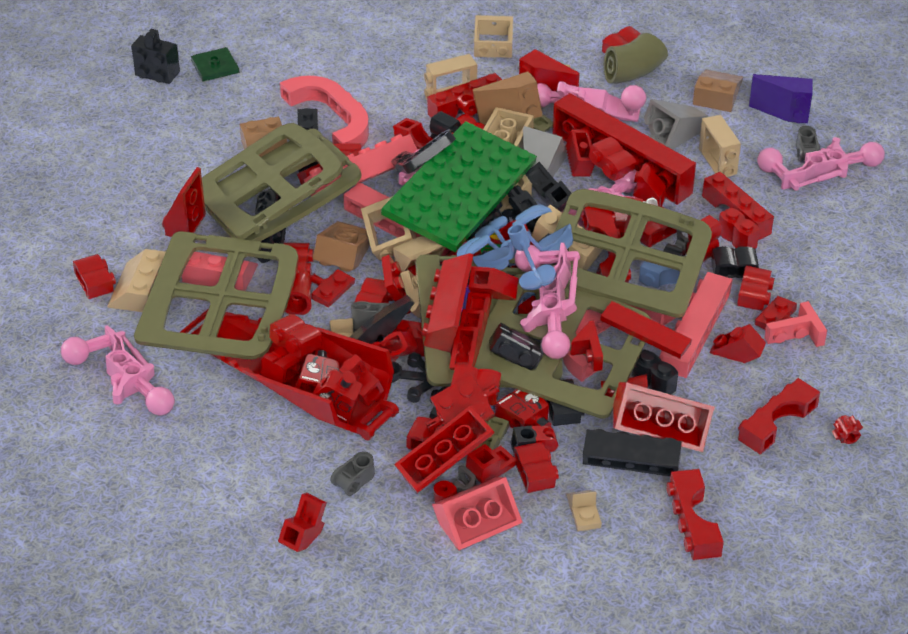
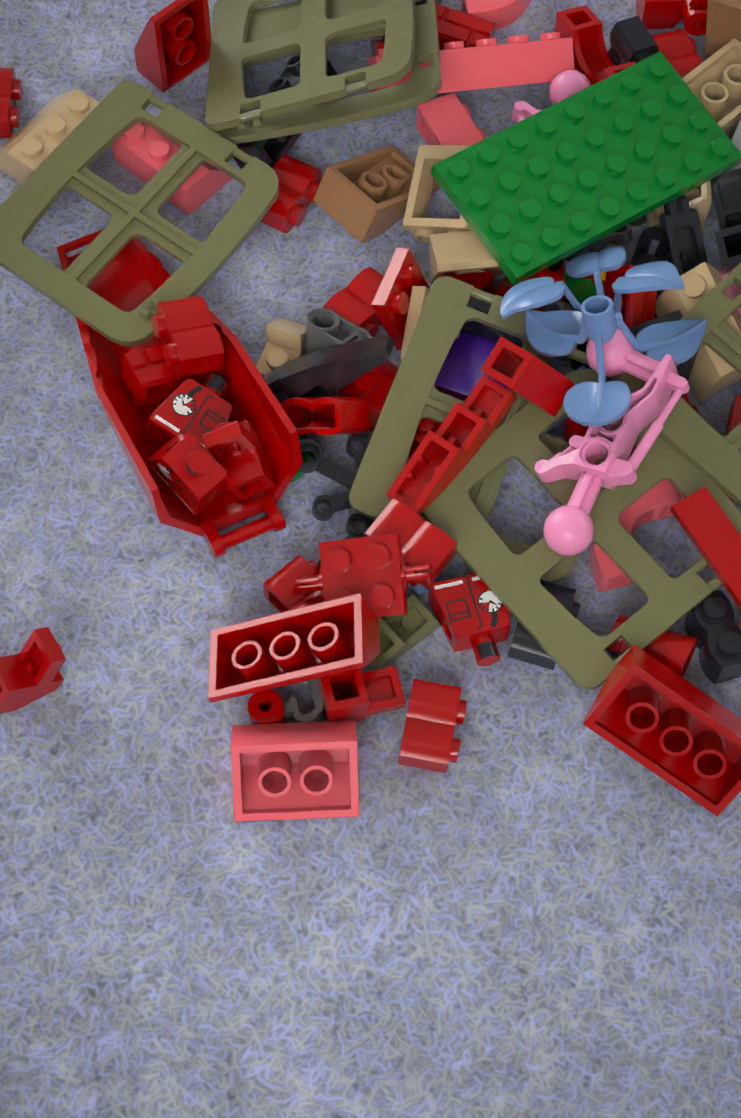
camera: 25 degrees right, 20 degrees up
(300, 297) = (259, 251): red plant -> none
(331, 288) = (316, 258): red plate -> none
(354, 473) = (152, 613): dark grey piece -> none
(409, 162) = (537, 89): beam -> none
(447, 302) = (436, 382): red slope -> none
(515, 346) = (506, 502): black brick -> none
(533, 434) = (461, 670): leg -> none
(584, 510) = (465, 839): tan slope -> none
(588, 343) = (623, 548): red slope -> none
(631, 452) = (595, 773): black brick -> none
(701, 536) = (620, 990): red arch -> none

